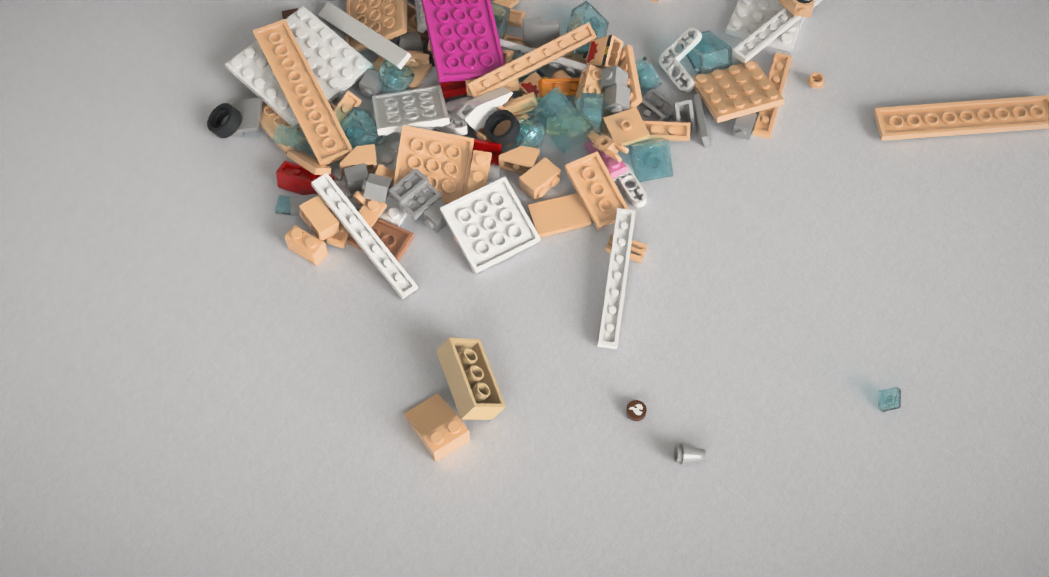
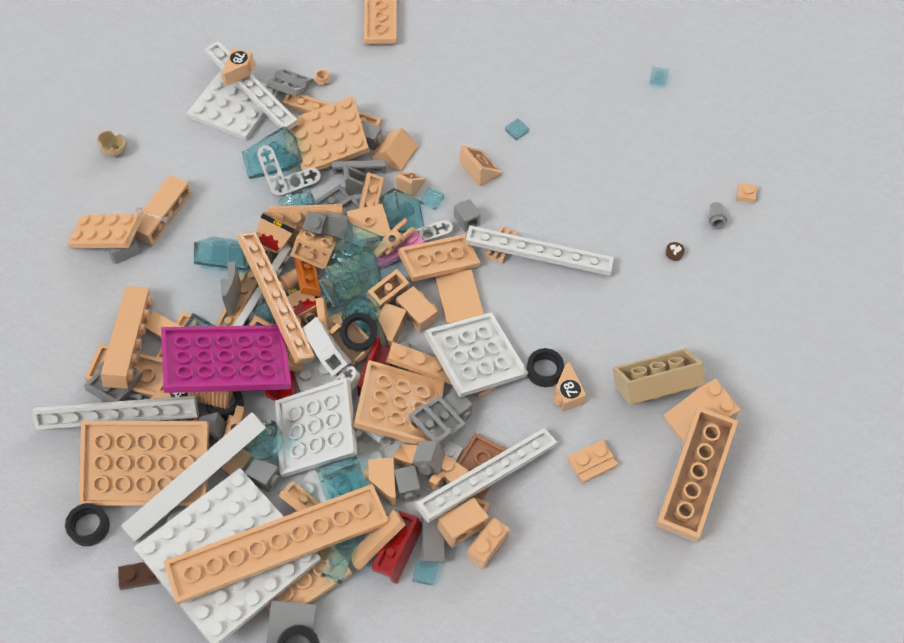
camera: 90 degrees left, 0 degrees up
(364, 407) = (696, 474): none -> light nougat brick
(387, 330) = (592, 461): none -> light nougat plate
(460, 306) = (569, 390): none -> light nougat slope
(480, 274) = (548, 354): none -> black tyre
(555, 150) = (389, 288): none -> light nougat brick
(655, 213) = (467, 214): none -> light grey brick
(675, 185) = (432, 198): none -> clear light blue tile
(690, 163) = (409, 182): none -> light nougat slope
(723, 221) = (478, 165): none -> light nougat slope
(729, 492) = (746, 192): none -> light nougat plate
(731, 150) = (395, 149): none -> light nougat slope
(781, 257) = (517, 129): none -> clear light blue tile
(801, 54) = (289, 82): none -> light grey slope

